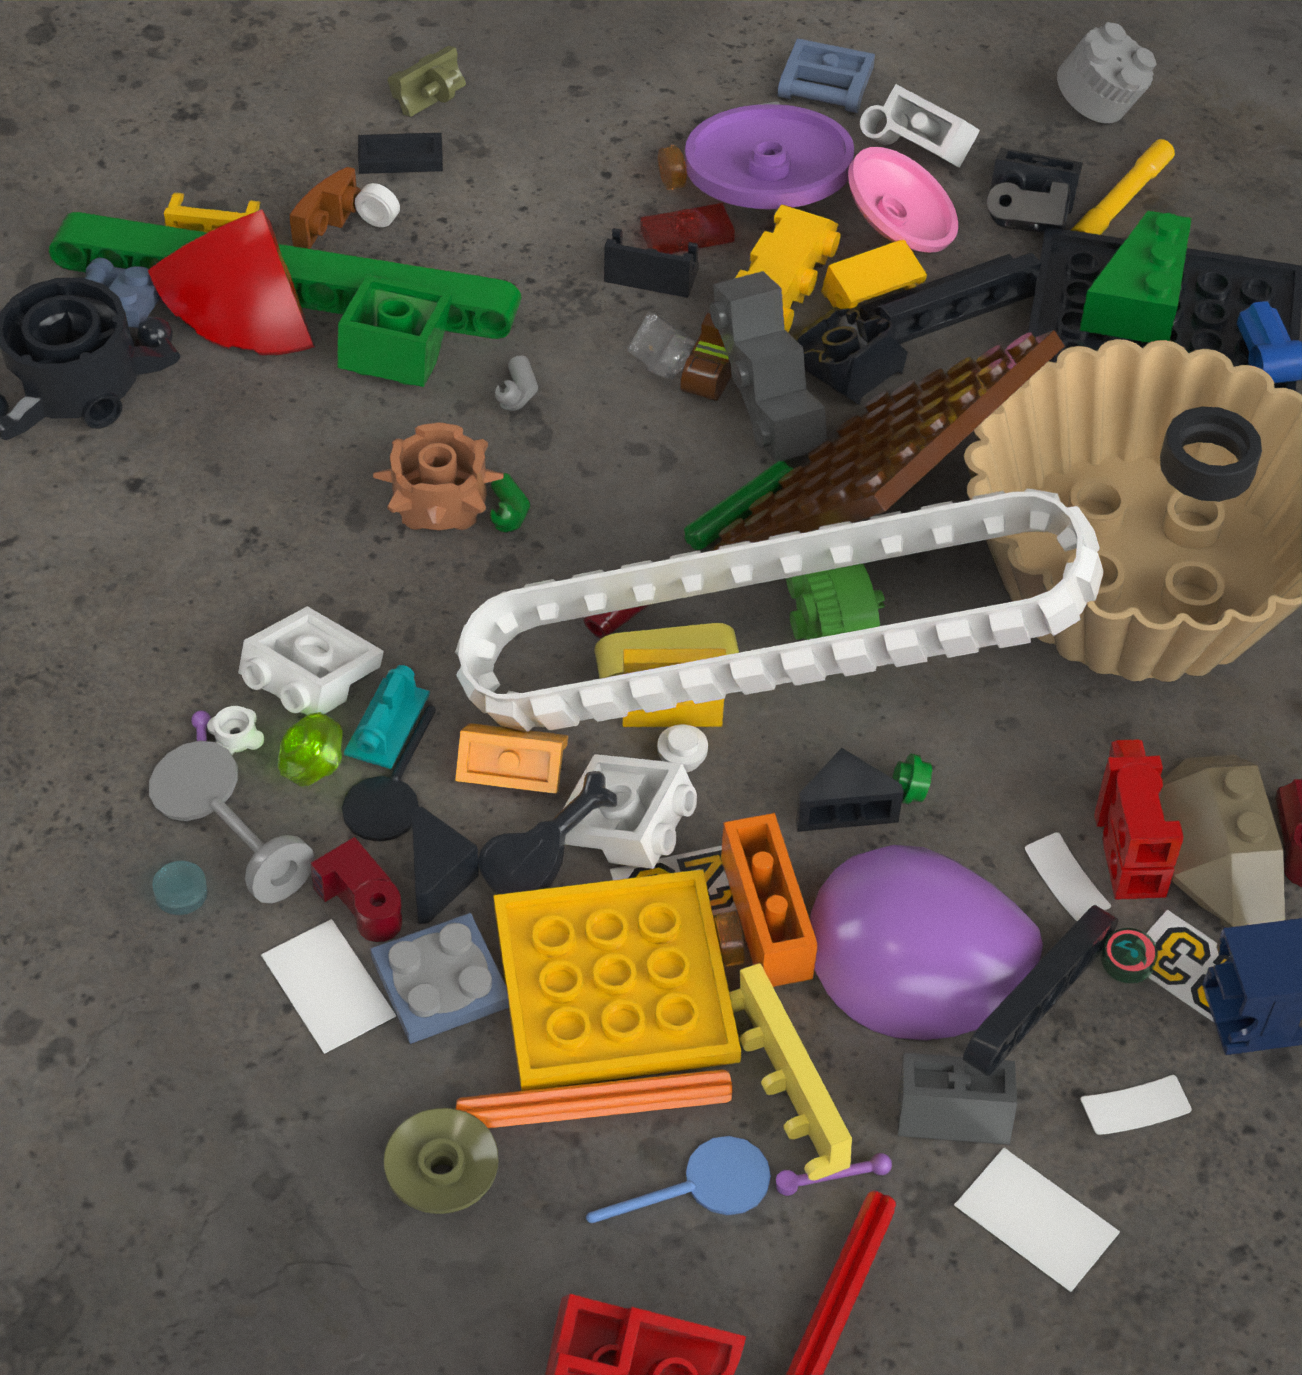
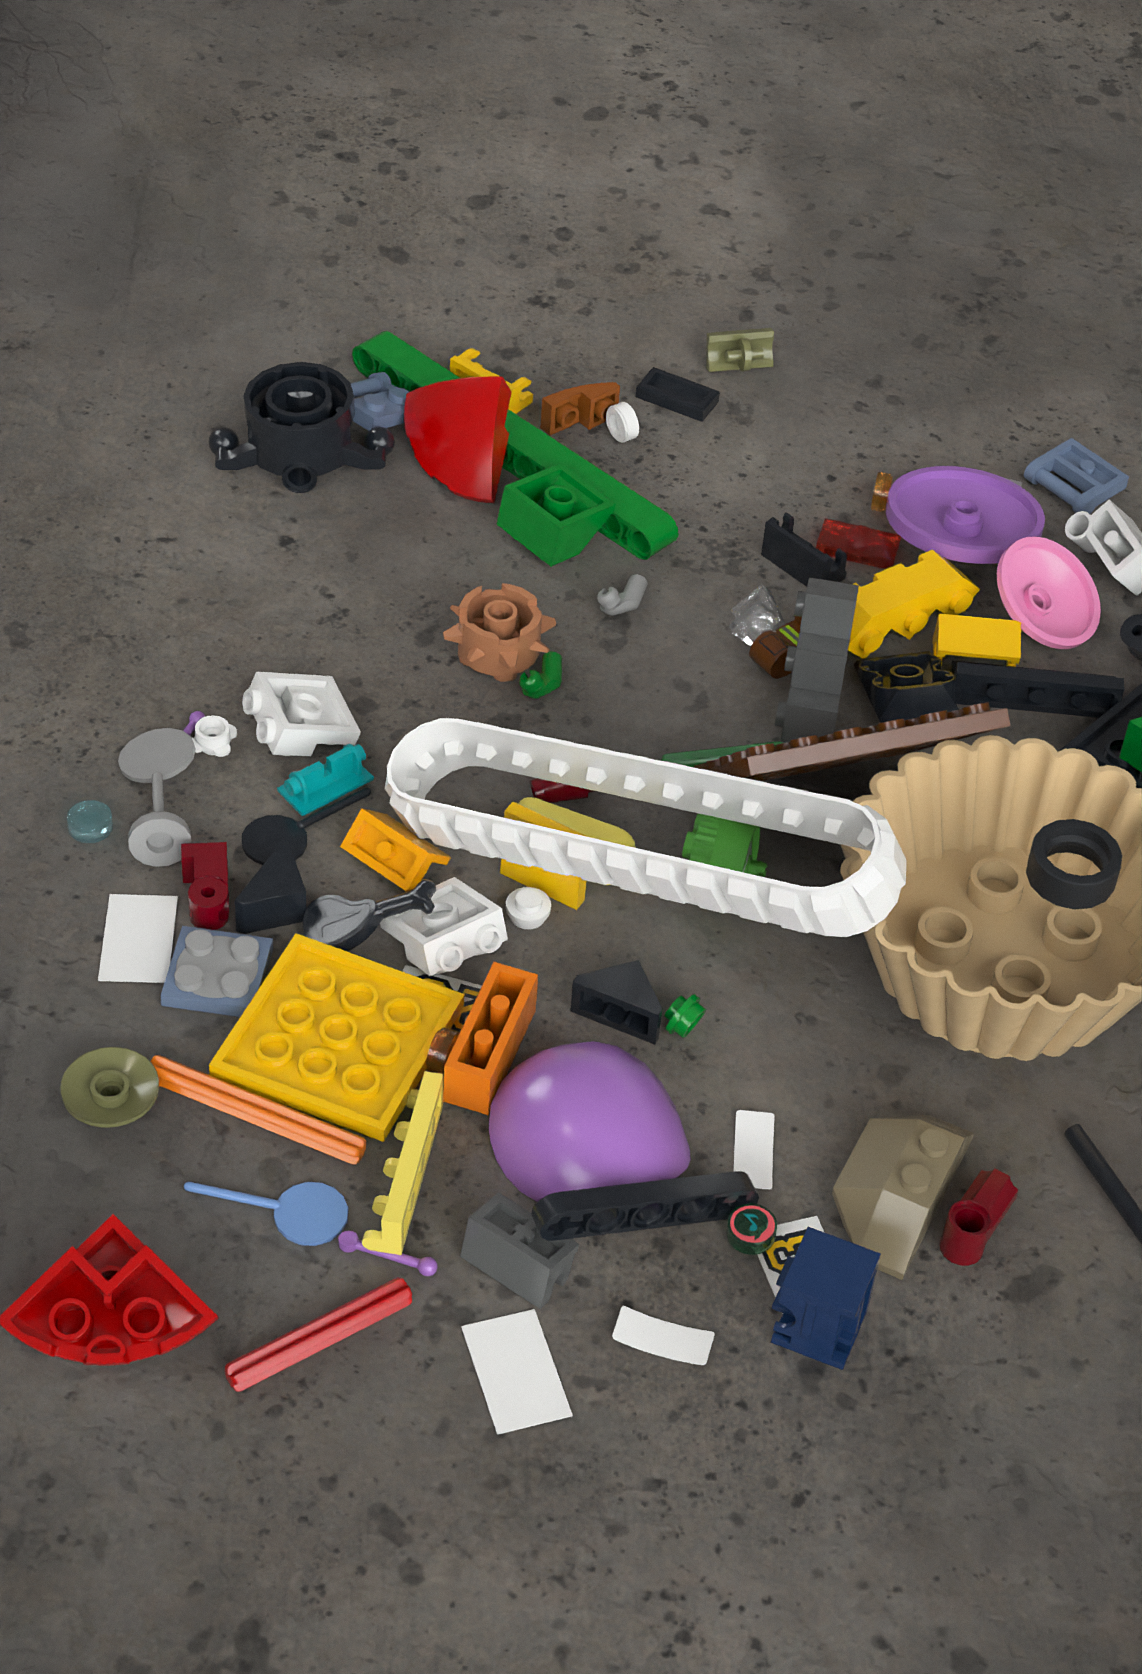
camera: 30 degrees right, 5 degrees down
(310, 749) = (250, 772): clear neon green plate -> none
(1136, 837) = (828, 1130): red hips -> none

